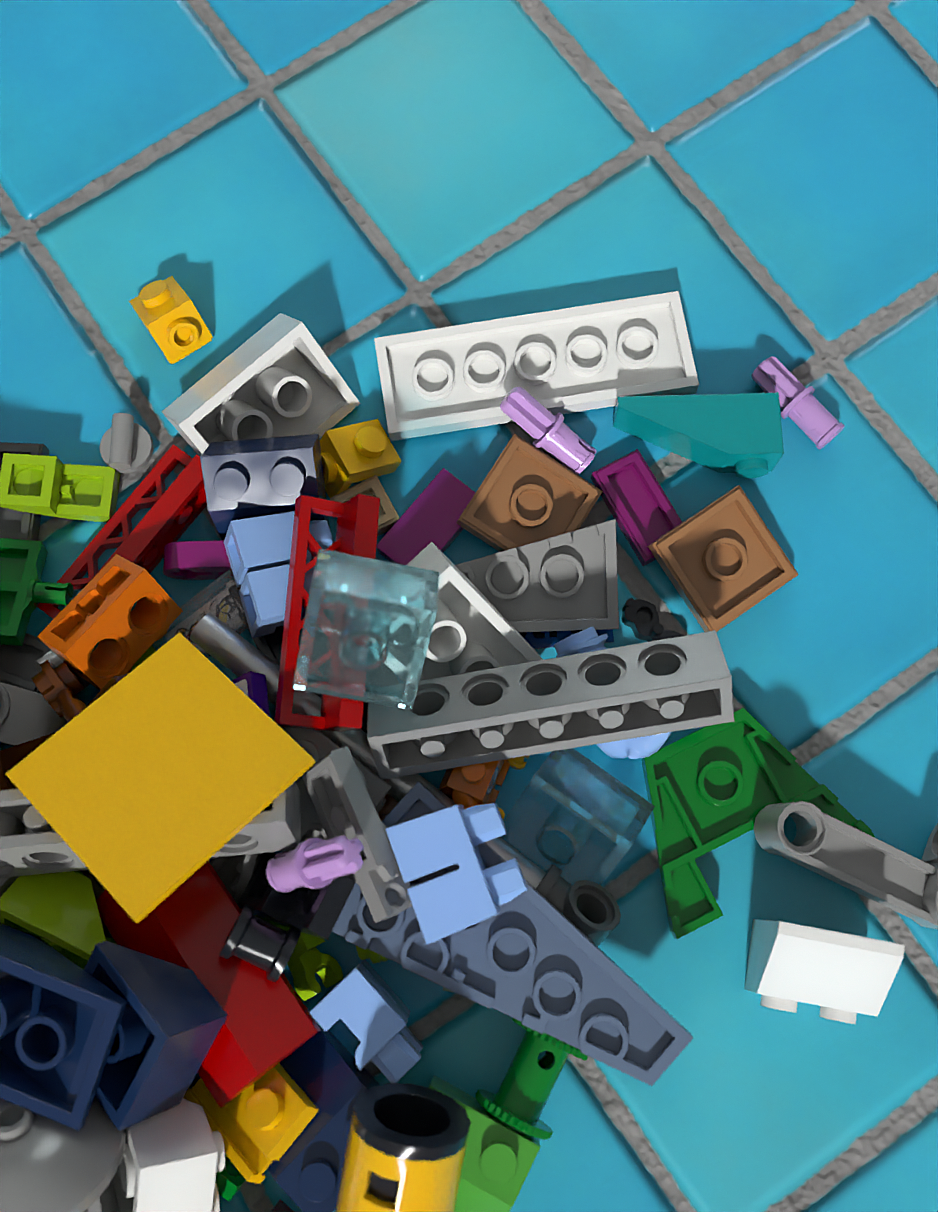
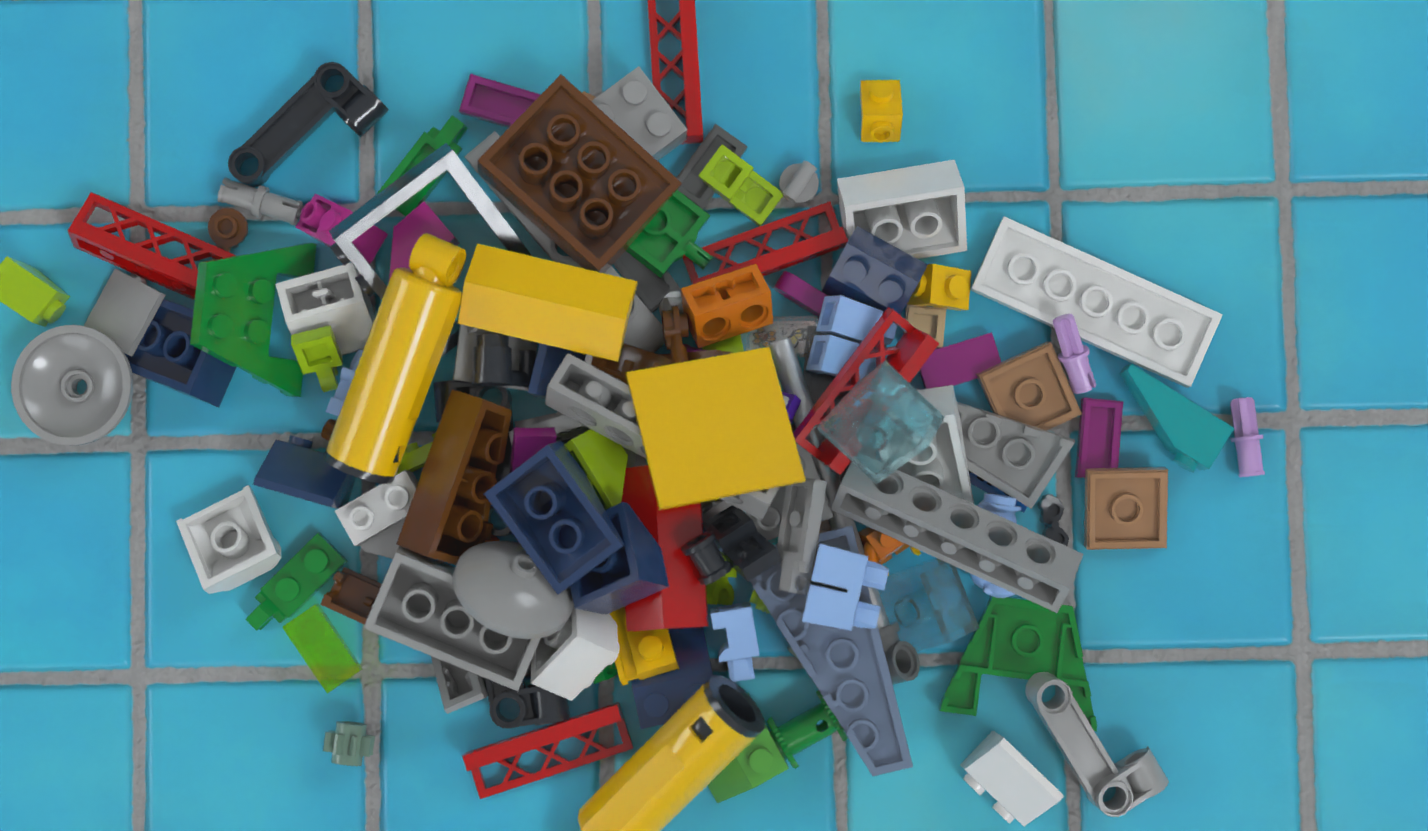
camera: 30 degrees right, 10 degrees up
(314, 863) = (767, 536): lavender axle -> none

